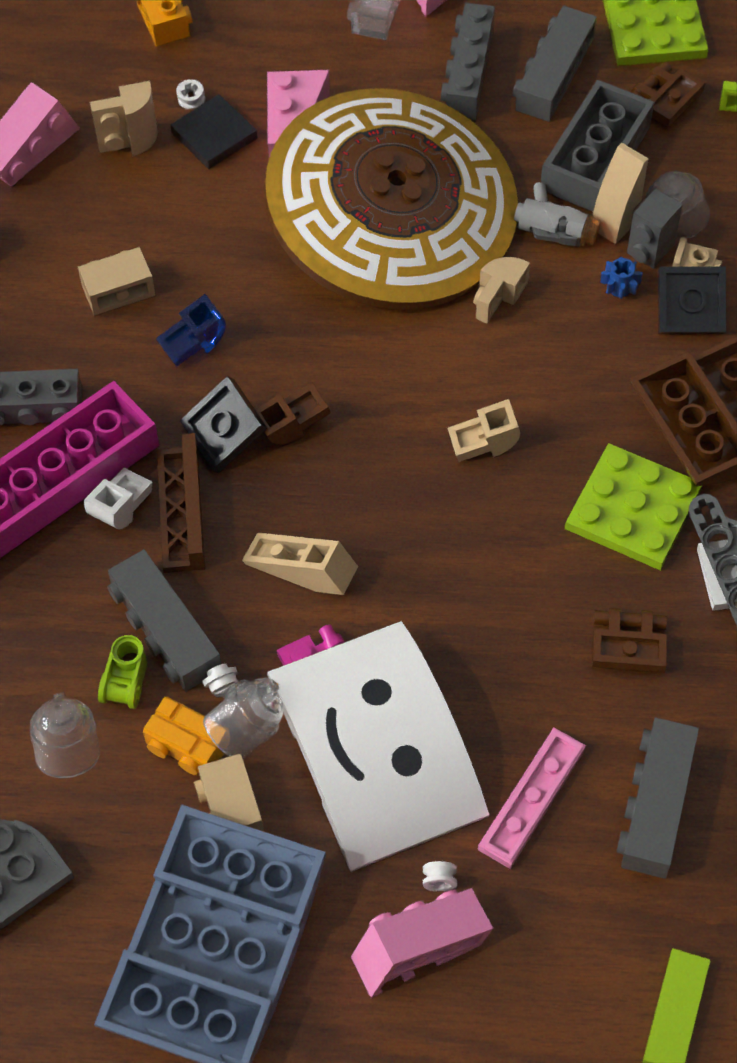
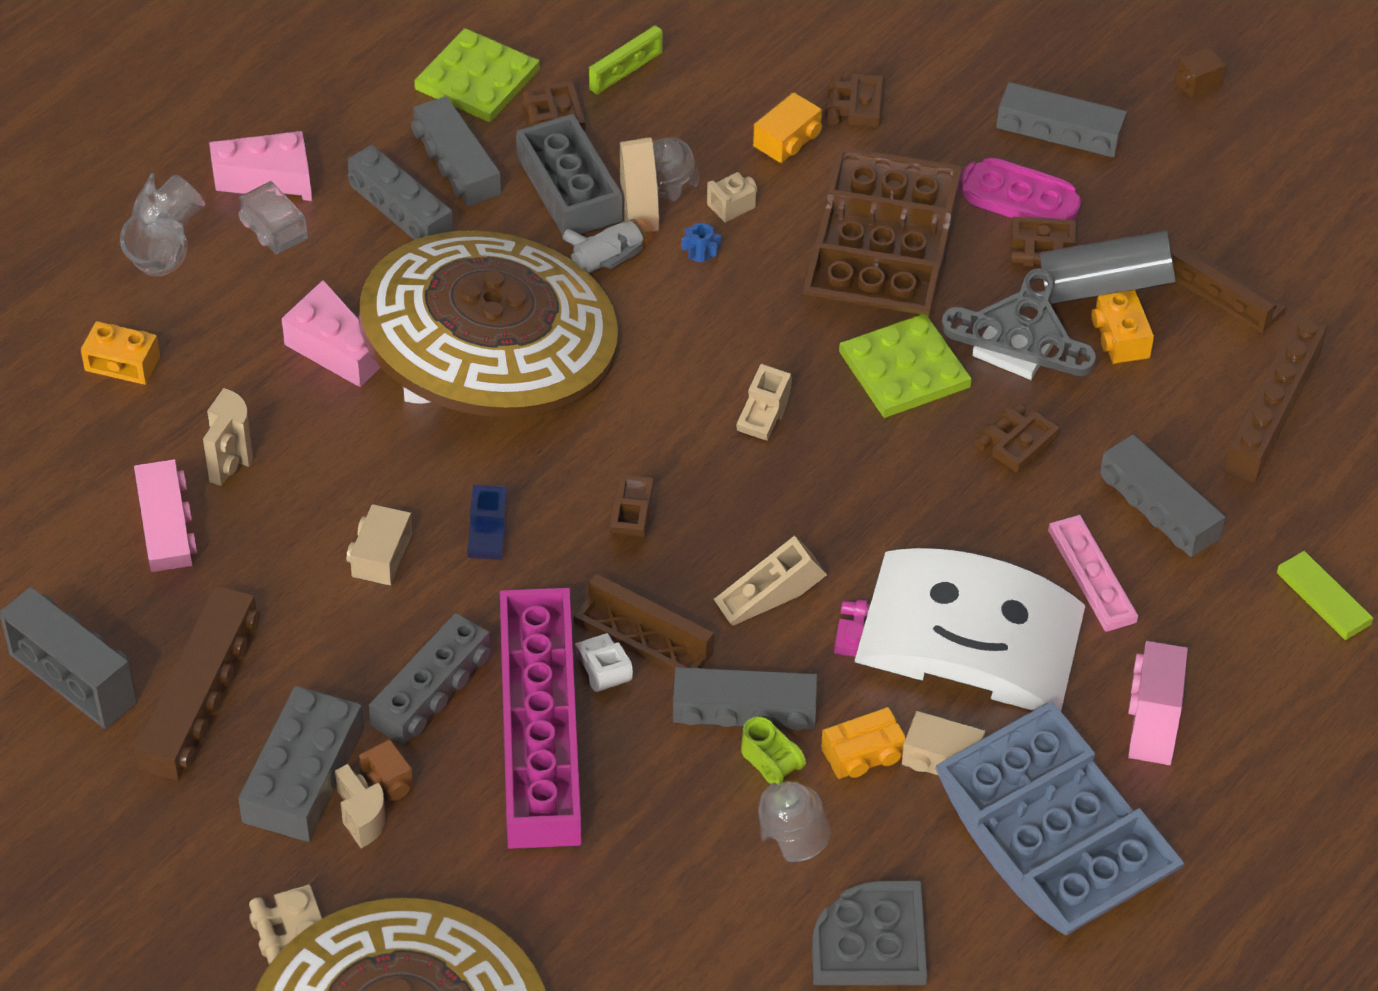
camera: 55 degrees left, 10 degrees down
(190, 86) = (229, 380): white bush -> none
(213, 131) = (285, 398): black tile -> none
(220, 678) = (830, 693): white plate -> none
(223, 424) = (598, 549): tile -> none
(245, 716) = (892, 682): clear helmet -> none
(439, 876) = (1113, 660): white bush -> none
(500, 281) = (636, 315): tan brick -> none
(654, 228) = (684, 191): dark grey brick -> none
(691, 300) = (764, 215): black tile -> none

